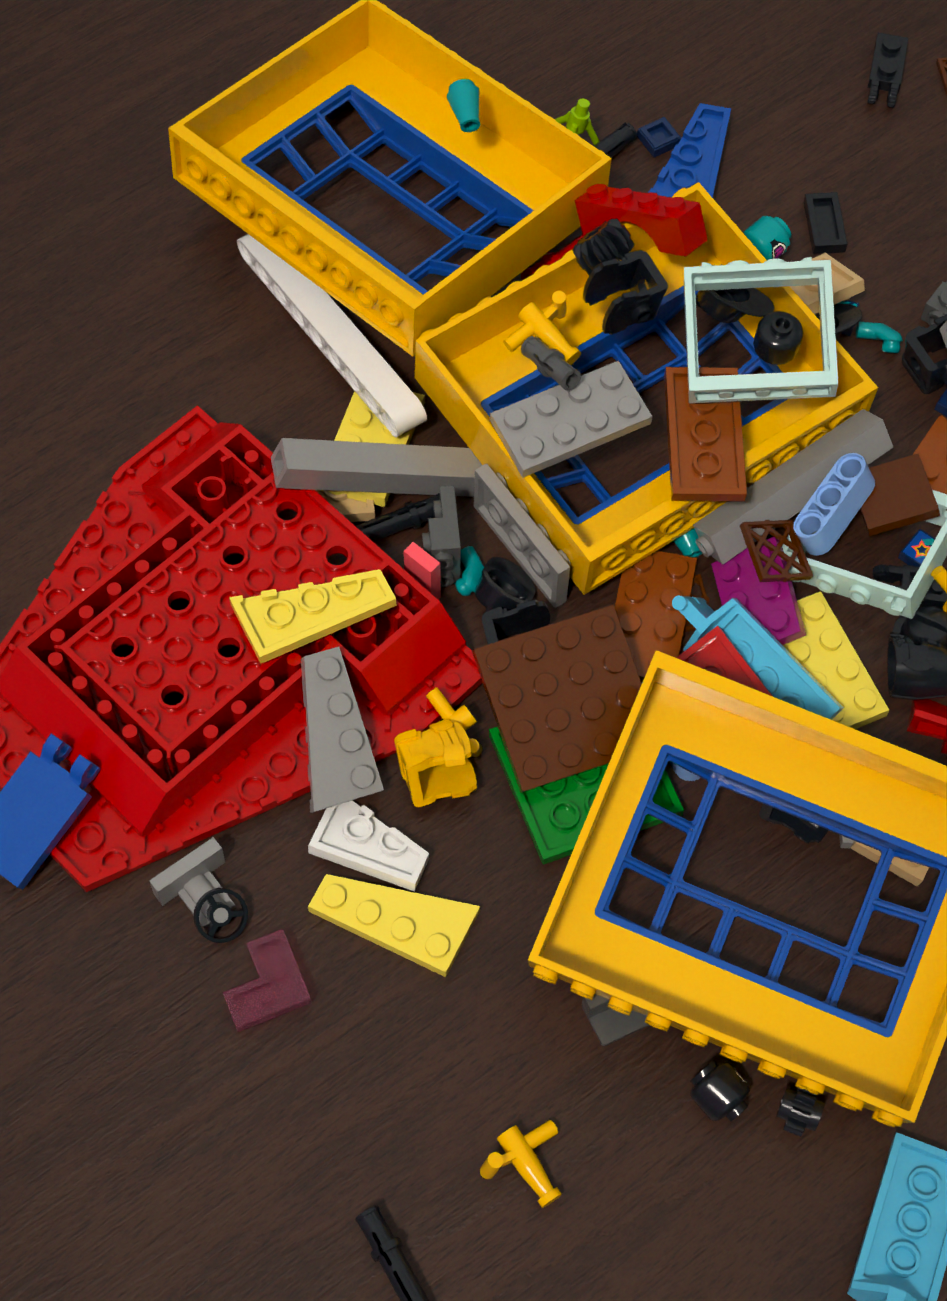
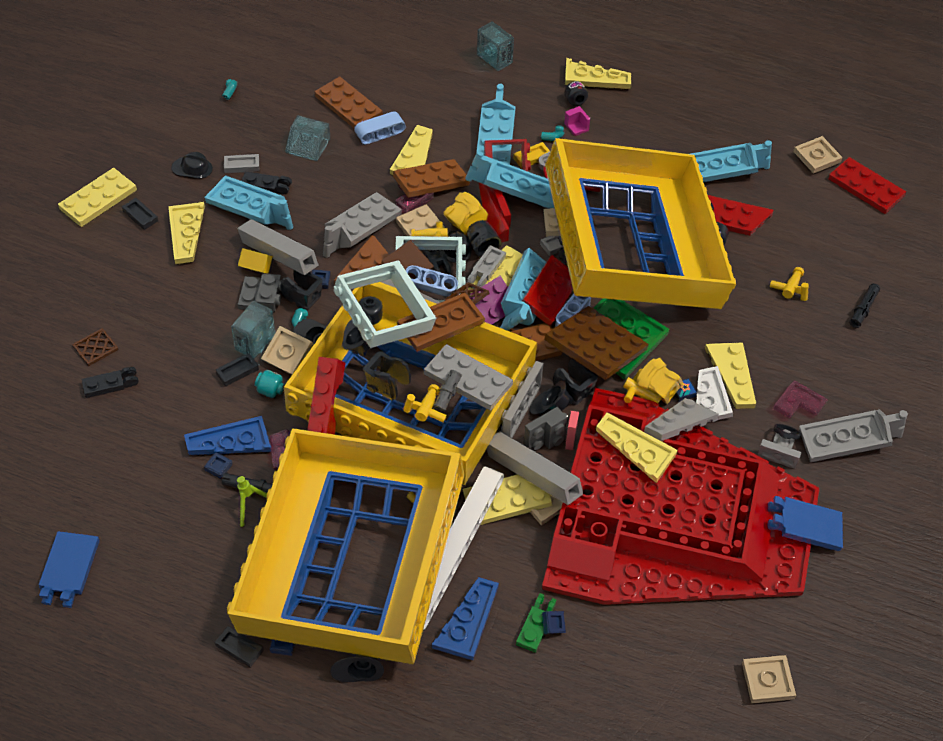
camera: 120 degrees left, 10 degrees down
(133, 390) = (553, 622): none -> dark blue tile
(141, 1012) = (851, 434): none -> light grey hinge
(150, 377) = (532, 631): none -> green hinge
(204, 292) = (468, 621): none -> blue wing
(407, 817) = (686, 390): none -> tile
(465, 102) = (299, 505): teal cone -> none
(602, 244) = (371, 400): black gear -> none
(759, 1181) = (739, 216): none -> red wing
(842, 634) = (487, 265): none -> light grey hinge
(879, 250) = (253, 329): none -> clear light blue brick

